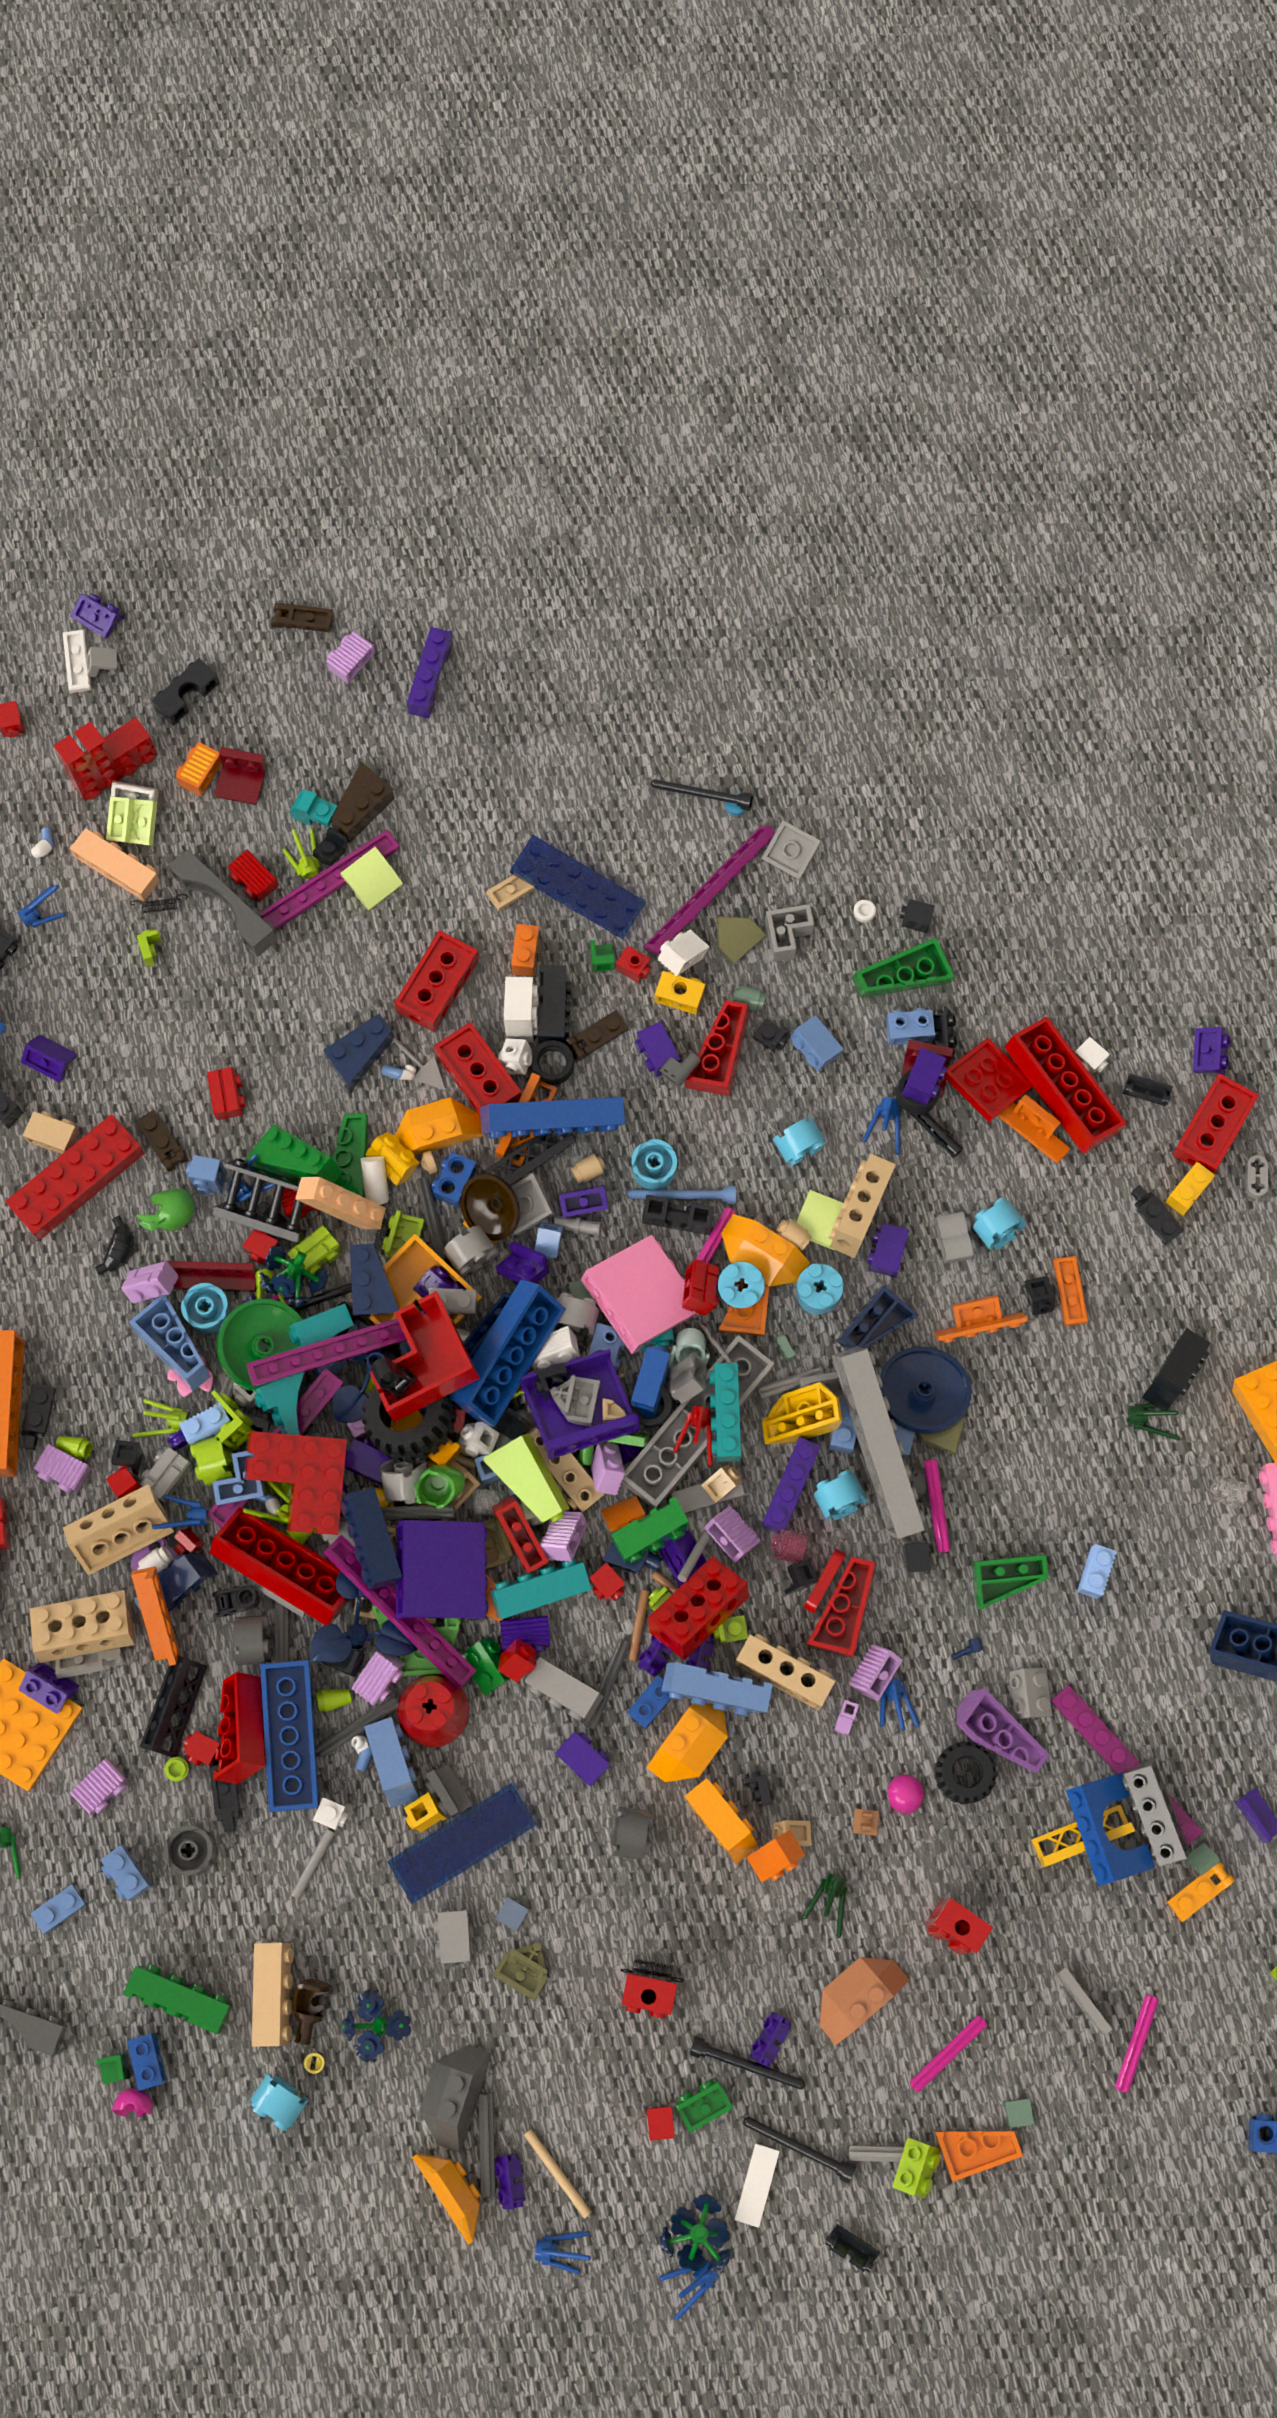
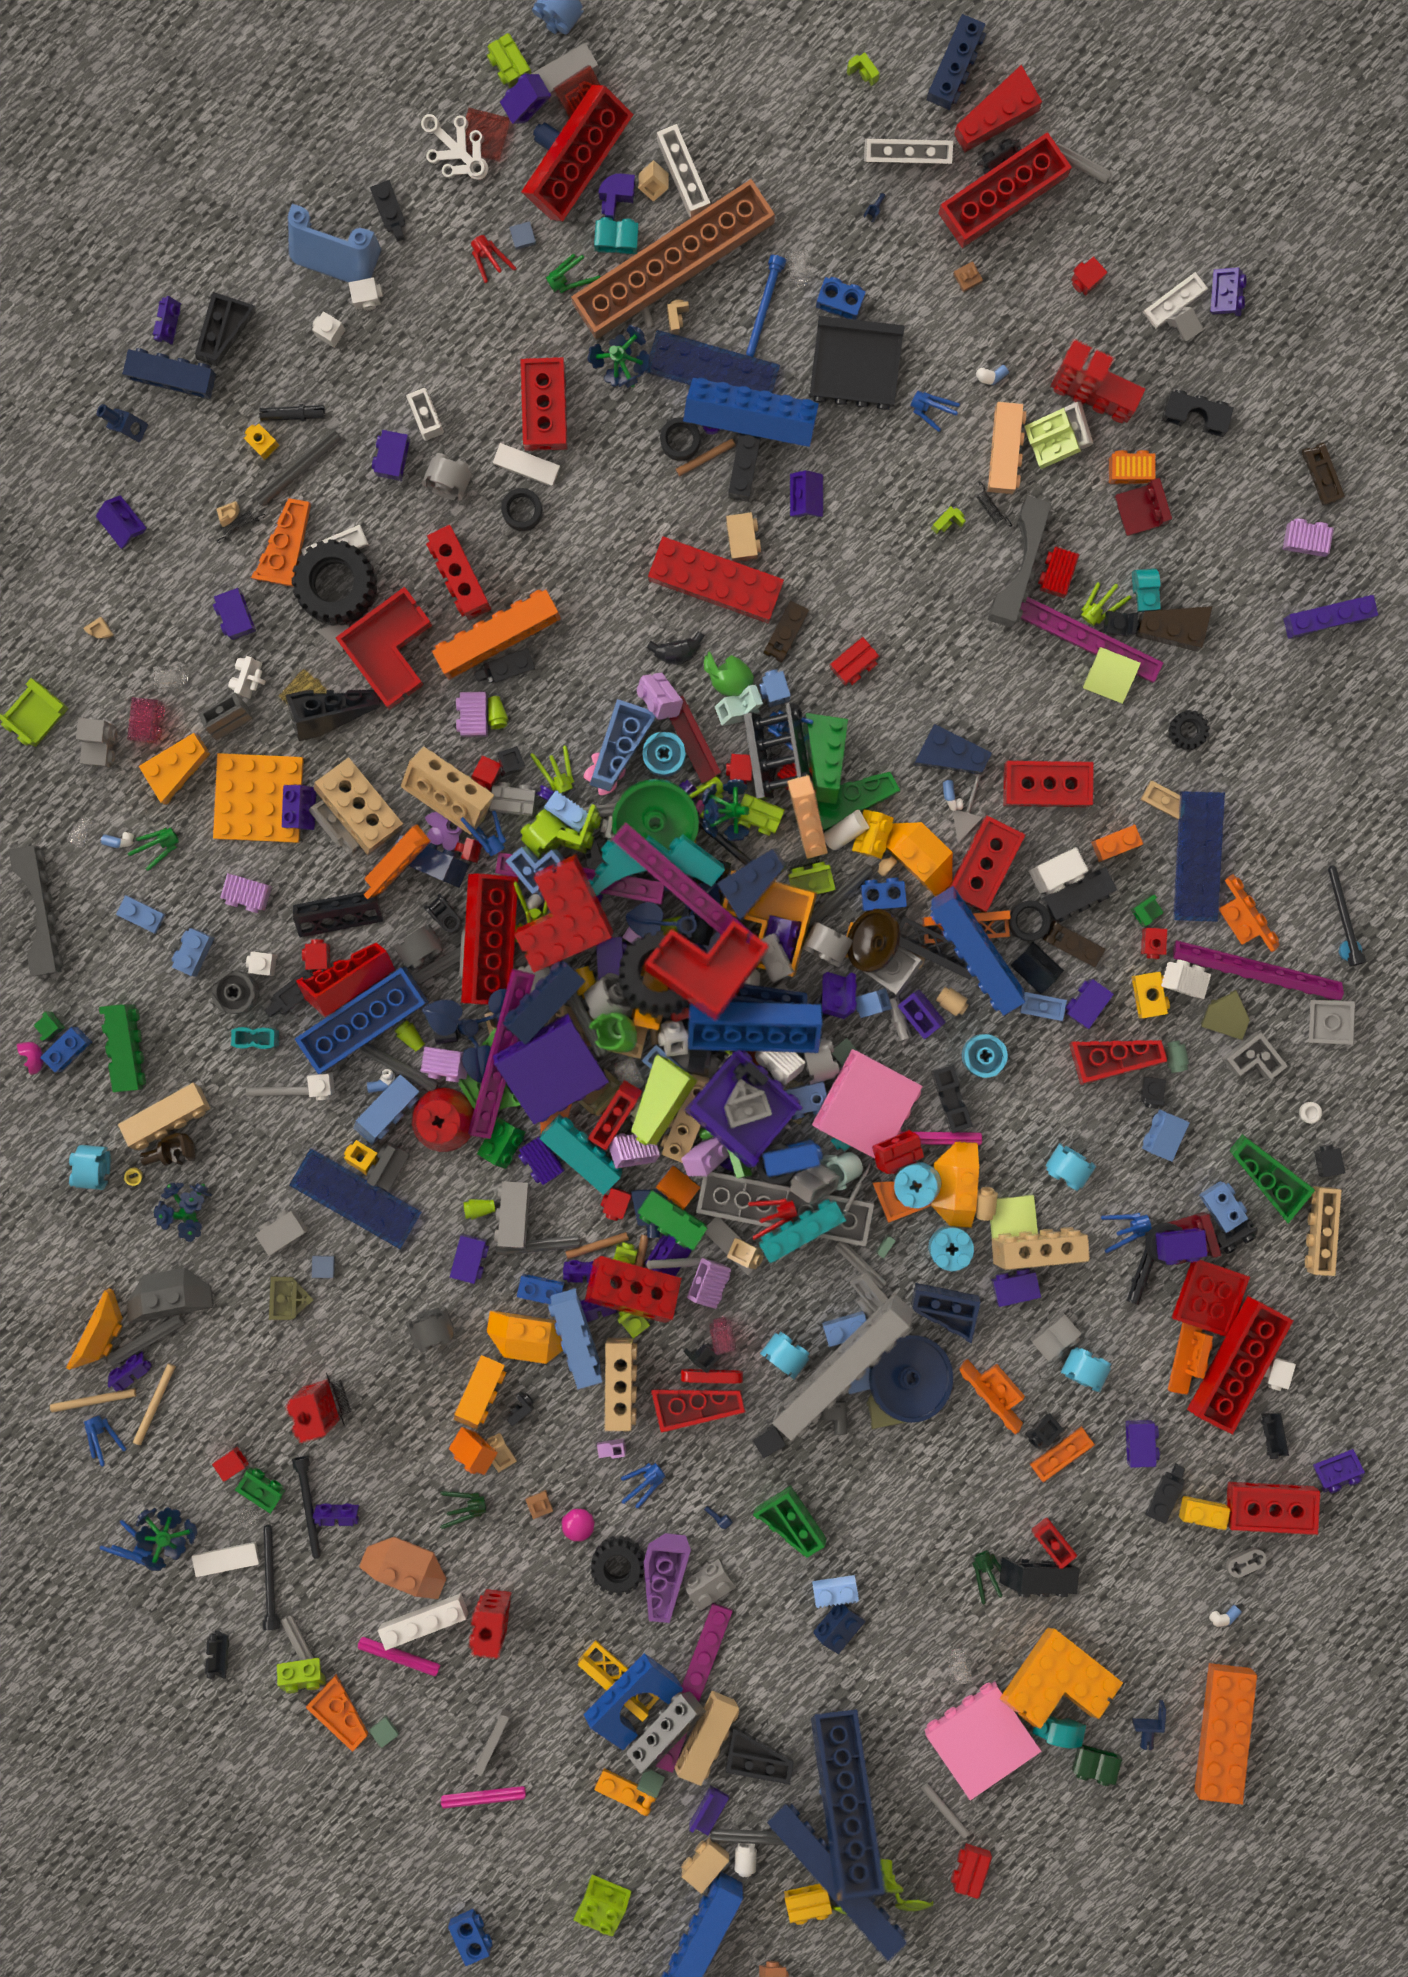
camera: 60 degrees right, 15 degrees up
(158, 1557) = (439, 834): white brick -> none
(176, 1769) = (292, 944): lime plate -> none
(177, 1809) = (261, 963): none -> white brick
(202, 1223) = (731, 708): none -> light aqua brick
(249, 1849) = (250, 1037): none -> teal brick
(392, 1376) = (677, 951): black piece -> none
(460, 827) = (1198, 721): none -> black tyre
(516, 1056) = (1016, 888): white brick -> none
(517, 1660) = (515, 1167): red brick -> none
(518, 2238) = (93, 1400): none -> tan bar
(538, 1723) = (478, 1207): none -> lime cone
(600, 1078) = (1037, 968): none -> black panel
(611, 1410) = (751, 1138): tan tile -> none
(639, 1090) = (1043, 1006): none -> medium blue plate
(655, 878) = (1245, 918): none -> orange bracket
(677, 1071) = (1075, 1035): dark grey piece -> none
(726, 1194) = (992, 1129): medium blue piece -> none
(791, 1485) = (773, 1310): dark purple brick -> none
(802, 1414) = (836, 1290): yellow wedge -> none
(875, 1672) = (659, 1454): lavender brick -> none
(924, 2006) = (423, 1621): none -> white brick
(937, 1505) = (820, 1436): dark pink axle -> none
(978, 951) = (1323, 1231): none -> tan brick
(1095, 1212) = (1141, 1443): none -> dark purple brick
(1134, 1588) = (838, 1627): none -> dark blue bracket
(1150, 1339) = (1053, 1543): none -> red brick
(1183, 1776) = (706, 1738): none -> tan brick
(1226, 1738) = (756, 1759): none -> black wedge

